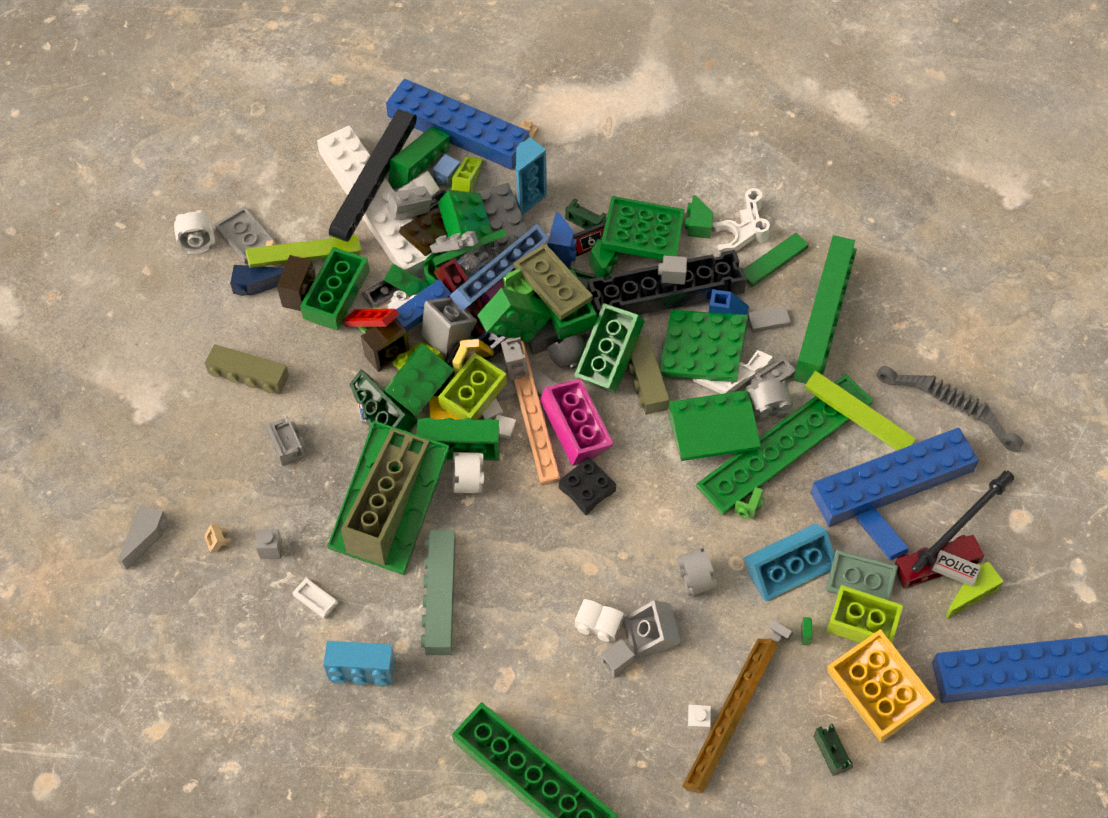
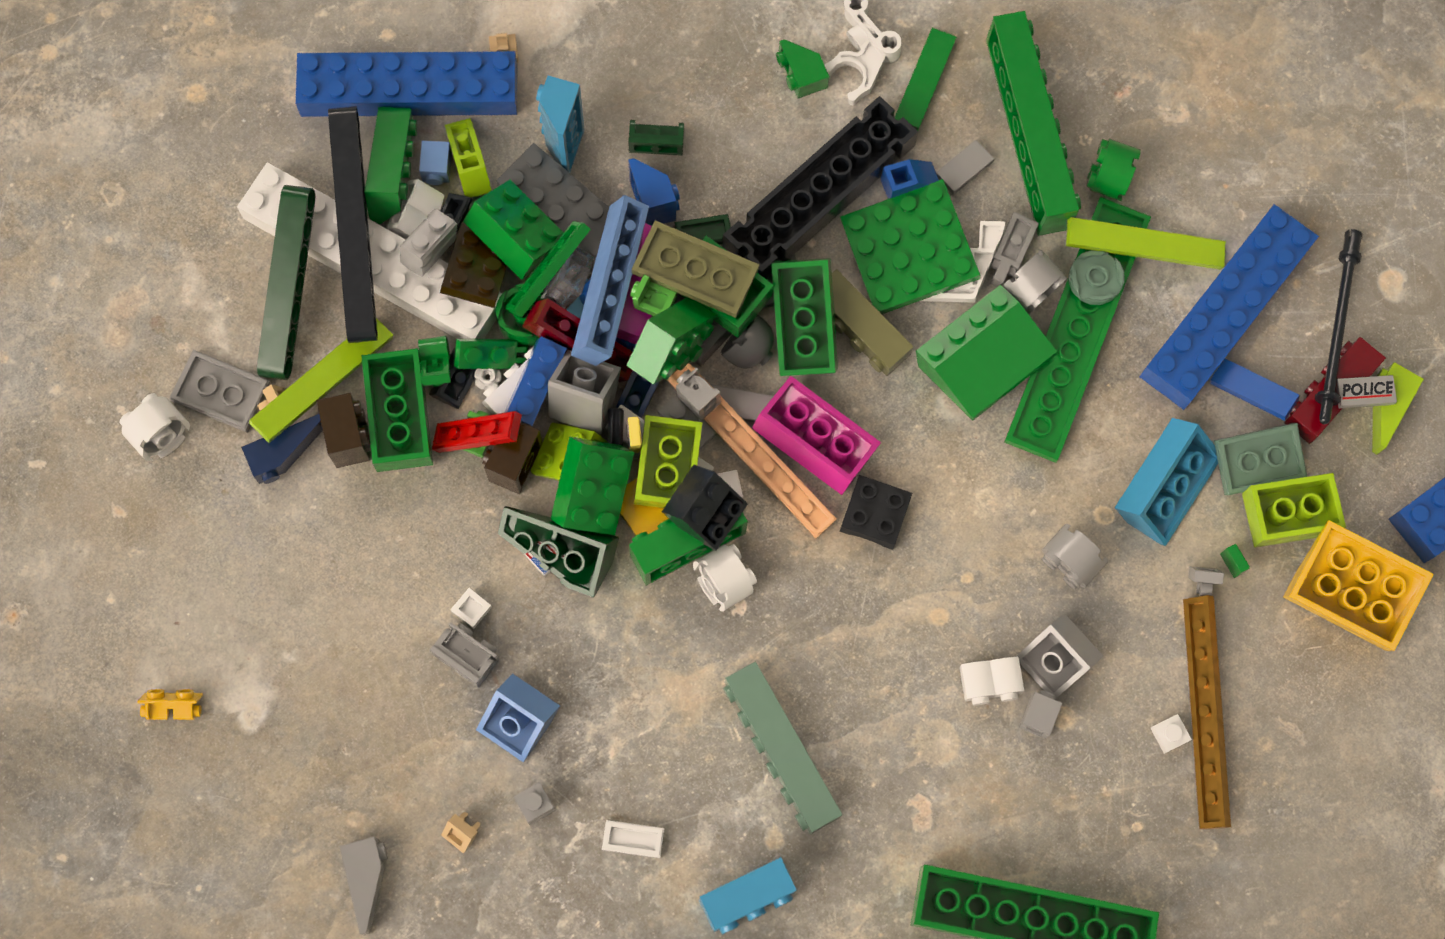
camera: 35 degrees left, 15 degrees up
(95, 380) = (158, 704): none -> yellow hinge
(246, 369) = (350, 584): olive brick -> none
(292, 490) = (517, 717): none -> medium blue slope
(306, 417) = (471, 608): none -> white plate
(317, 190) = (286, 282): none -> dark green beam
(374, 271) = (435, 361): none -> green plate
(388, 497) = (643, 639): piece -> none
(454, 242) = (528, 274): light grey hinge -> none
(475, 418) = (705, 506): none -> black slope
(478, 347) = (640, 404): yellow tile -> none
(587, 238) = (685, 164): slope -> none
(603, 260) = (715, 190): green slope -> none
(642, 228) = (744, 121): green plate -> none
(673, 269) = (825, 167): light grey brick -> none
(748, 510) = (1087, 428): bright green bracket -> none
(814, 417) = (1096, 277): none -> sand green tile
(832, 750) = (1340, 691): dark green hinge -> none
(862, 359) = (1114, 169): none -> green brick
(983, 413) = (1284, 166): dark grey piece -> none

